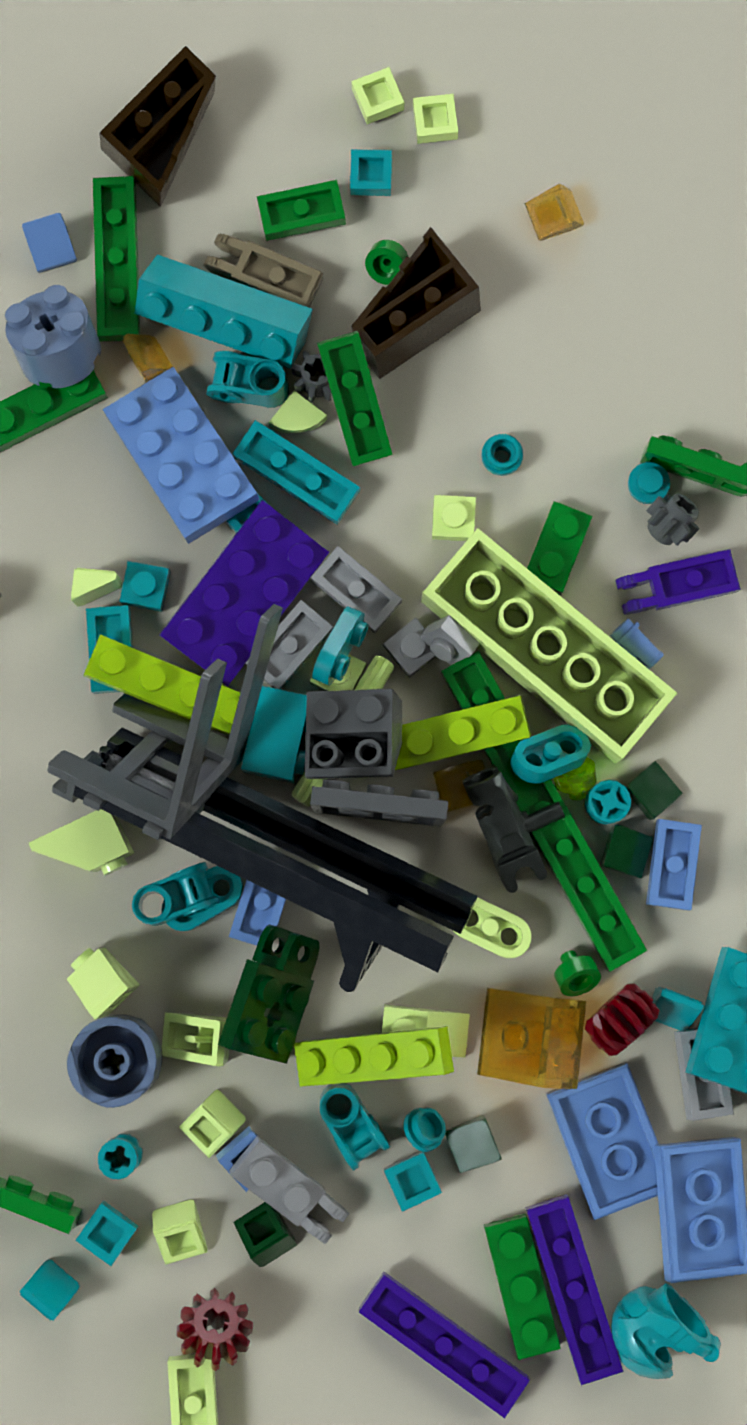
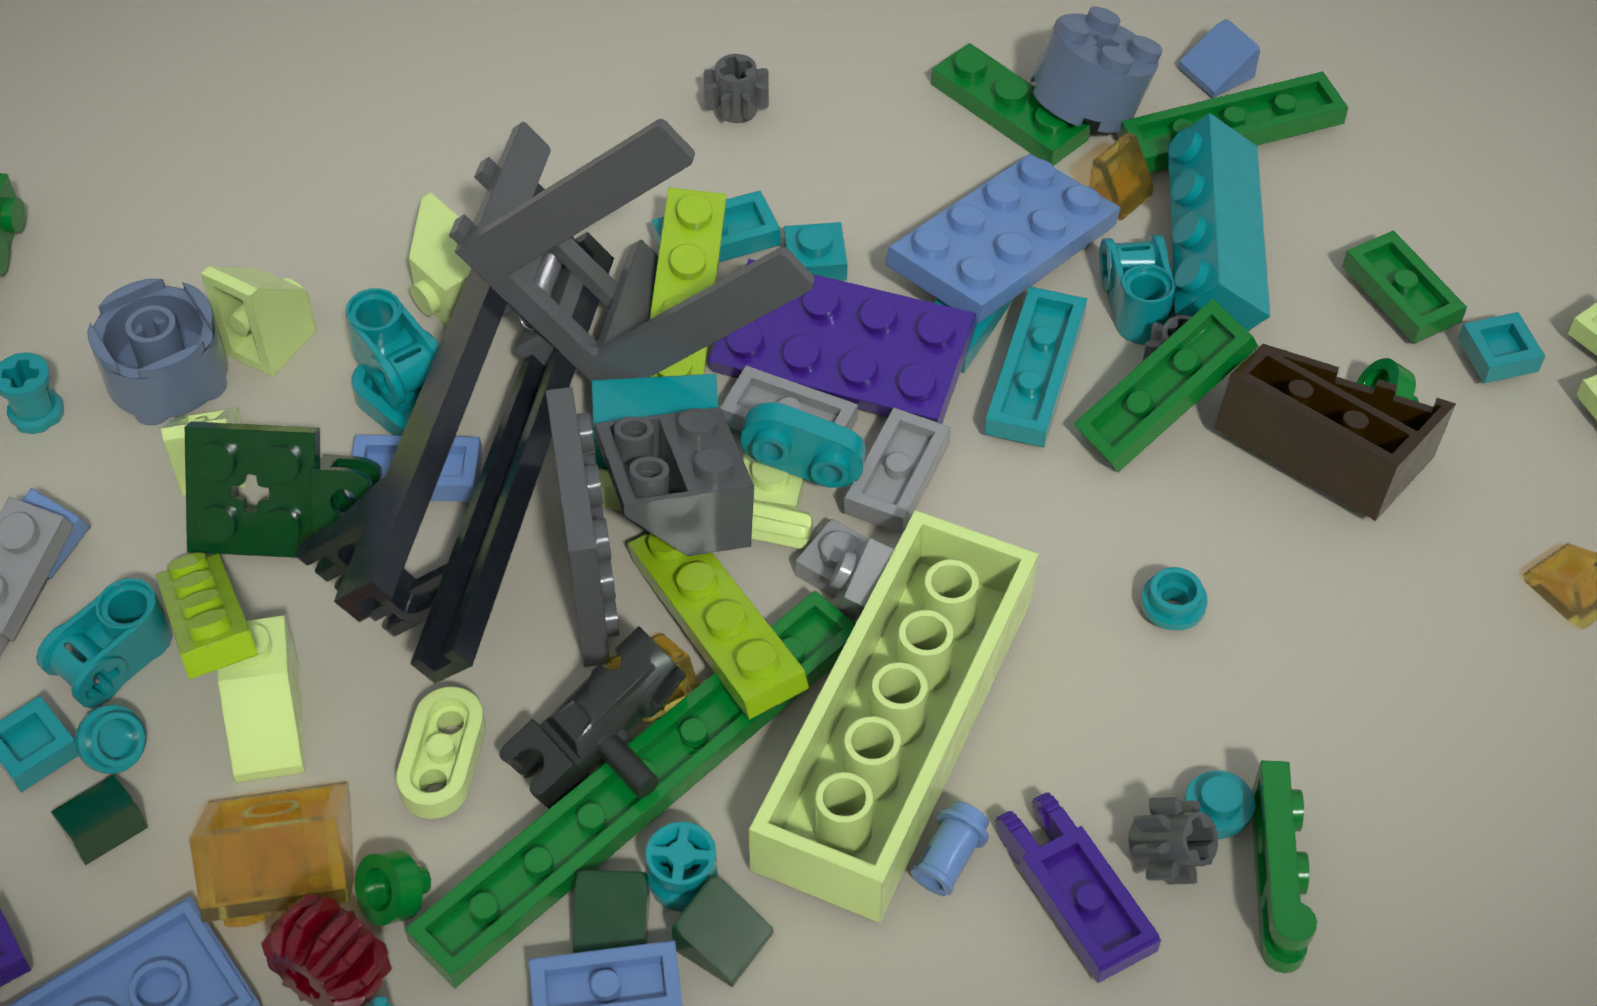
camera: 75 degrees right, 30 degrees down
(93, 584) = (791, 189): yellowish green slope -> none
(160, 123) = (1431, 112): dark brown wedge -> none
(213, 1123) = (95, 492): yellowish green slope -> none
(266, 270) = (1298, 275): dark tan hinge -> none
(297, 416) = (1116, 350): yellowish green tile -> none
(453, 517) = (1060, 567): yellowish green plate -> none
(543, 755) = (727, 742): teal plate -> none
(559, 545) = (1063, 708): green plate -> none
(578, 780) = (711, 805): clear neon green tile -> none

